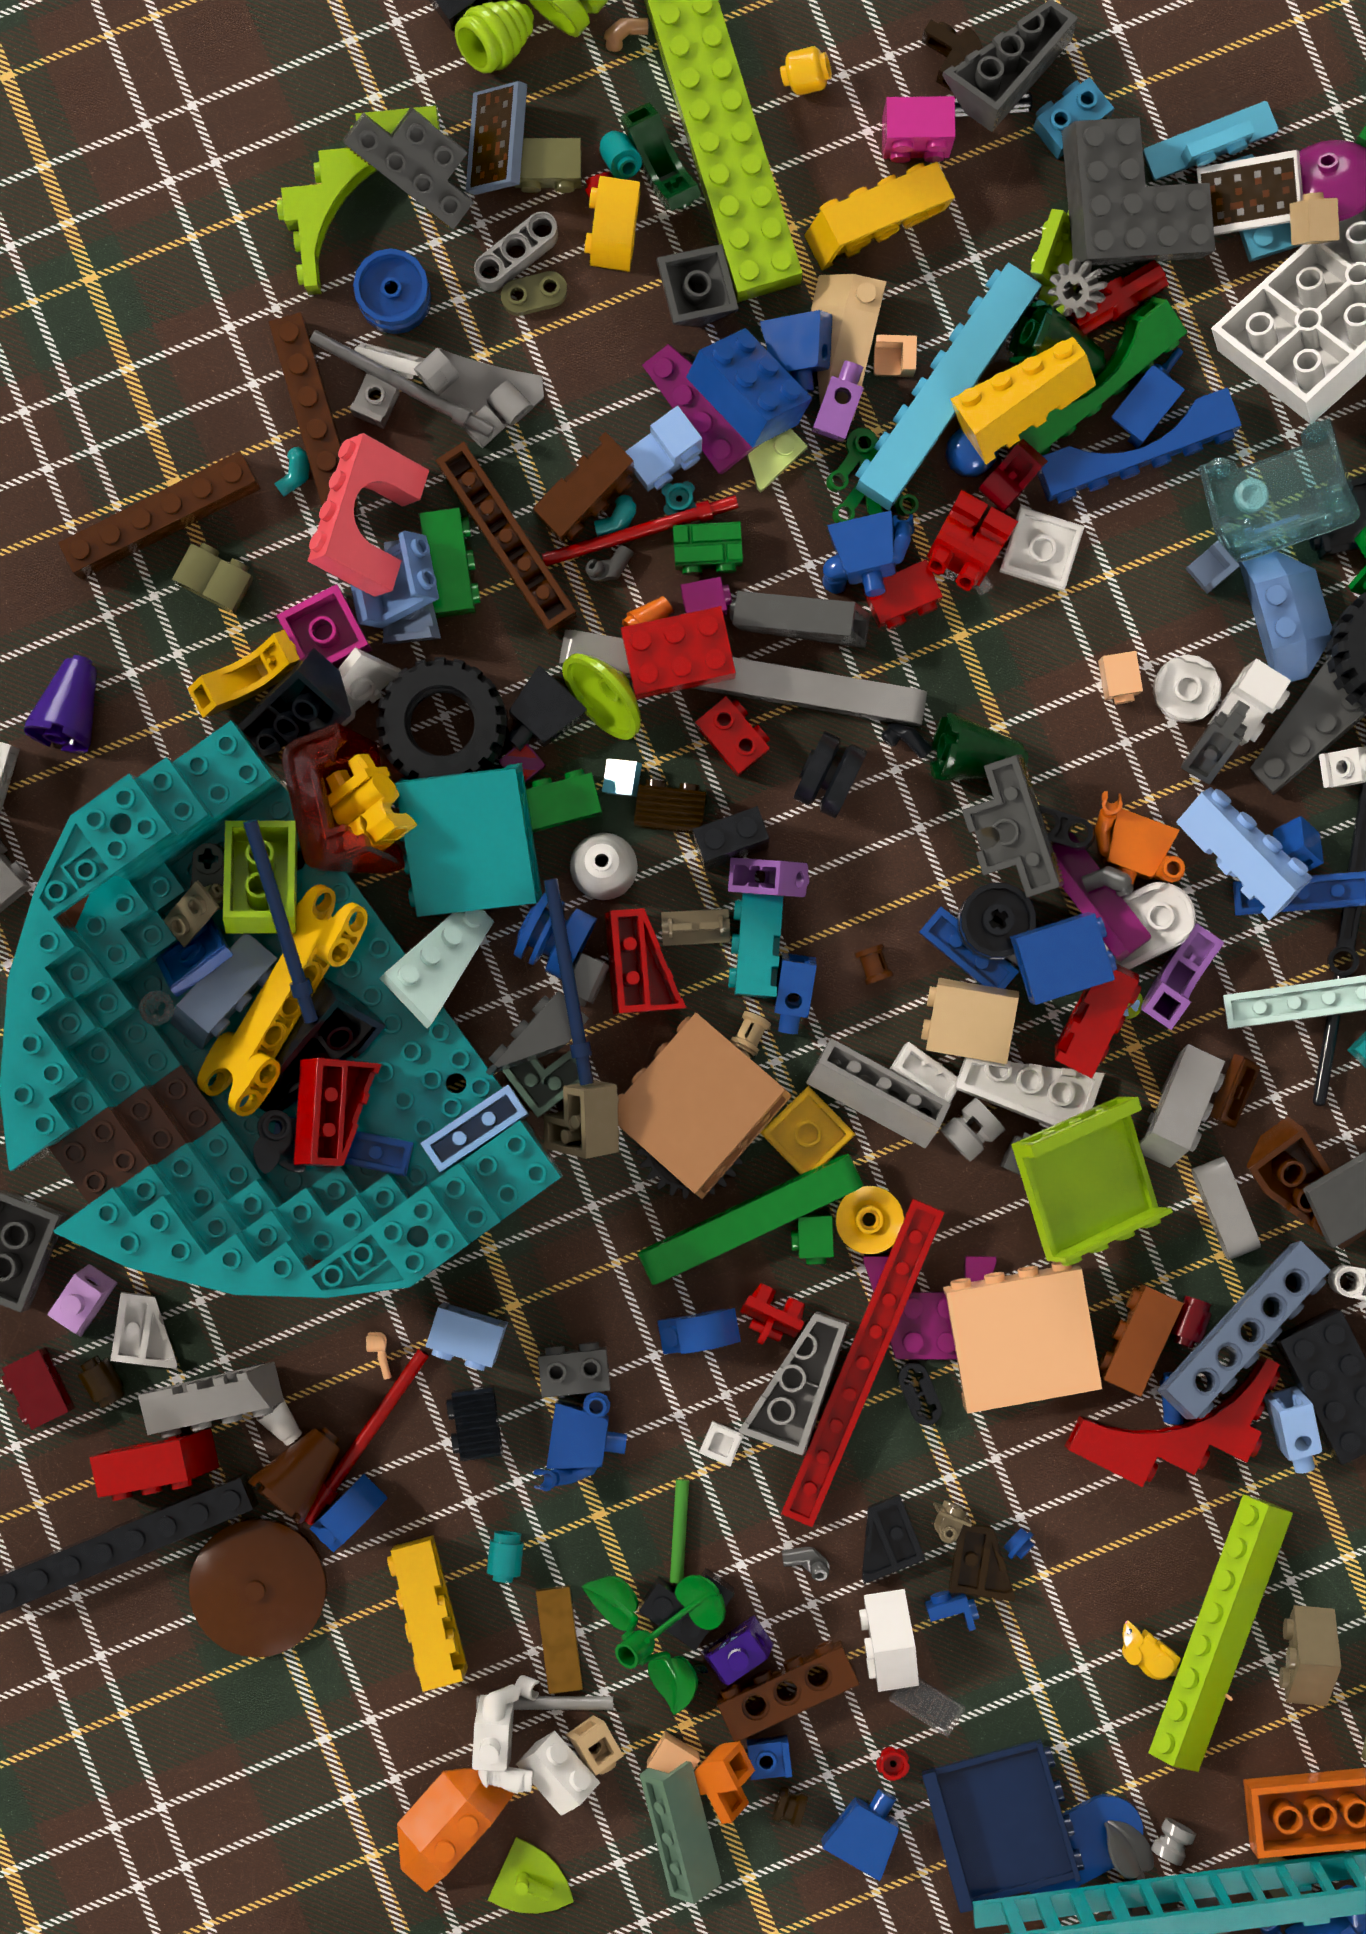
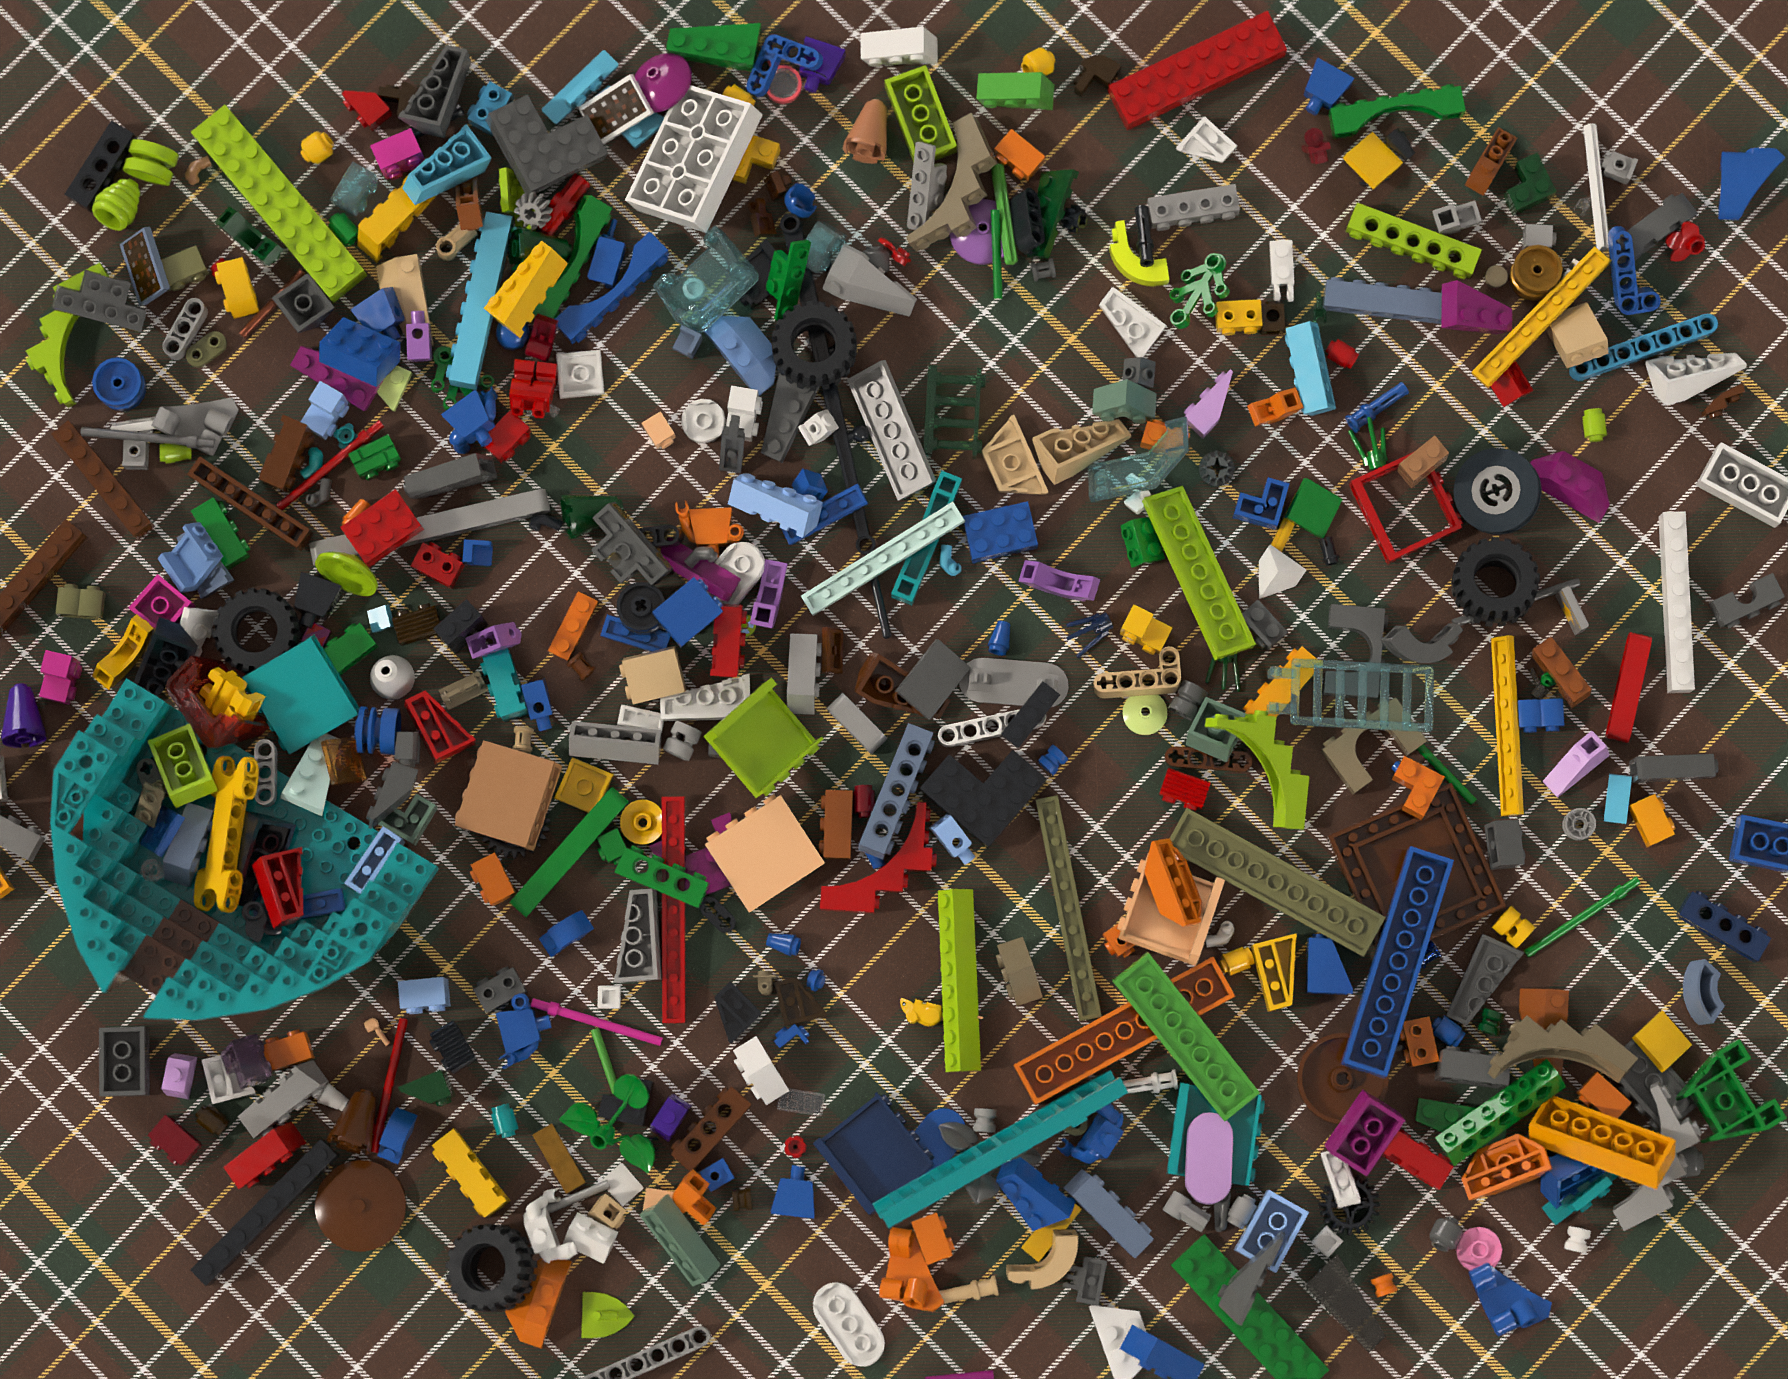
camera: 20 degrees left, 5 degrees down
(141, 671) = (59, 677): none -> dark pink brick
(181, 1327) = (247, 1061): none -> clear purple brick
(244, 1331) = (289, 1050): none -> orange brick
(297, 472) = (106, 517): teal arm -> none
(300, 986) = (233, 819): dark blue bar -> none
(338, 542) = (147, 547): coral arch -> none
(361, 1767) = (464, 1262): none -> black tyre
(387, 922) = (266, 762): none -> light grey beam
(420, 1471) = (432, 1088): none -> dark green slope
(429, 421) = (173, 453): none -> lime cone
(488, 958) = (343, 761): none -> clear orange tile
(580, 1048) = (419, 788): dark blue bar -> none
(588, 1121) = (443, 832): dark tan brick -> none
(620, 155) = (224, 245): teal brick -> none
(628, 1213) = (493, 879): none -> orange brick
(632, 1711) = (622, 1184): none -> white sticker
(639, 1428) = (555, 1009): none -> dark pink bar
(644, 270) = (270, 305): none -> copper bar
(705, 595) = (385, 486): magenta brick -> none
(769, 1320) = (606, 907): red hips -> none
(795, 741) = (477, 552): none -> blue panel
(797, 202) = (343, 229): none -> green brick
(810, 1559) = (693, 1044): dark grey arm -> none
(829, 774) = (505, 562): black wheel -> none
(835, 152) = (354, 189): none -> clear light blue brick
(885, 901) = (573, 626): none -> orange plate
(895, 355) = (442, 295): light nougat panel -> none
(900, 1359) = (628, 868): none -> green brick
(901, 42) = (368, 106): none -> red slope
(948, 284) = (457, 239): none -> tan piece
(985, 175) = (448, 167): none -> medium azure wedge
(989, 239) = (469, 205): none -> dark orange slope
(996, 1473) = (784, 943): none -> blue cone
(1314, 220) = (657, 111): tan brick -> none

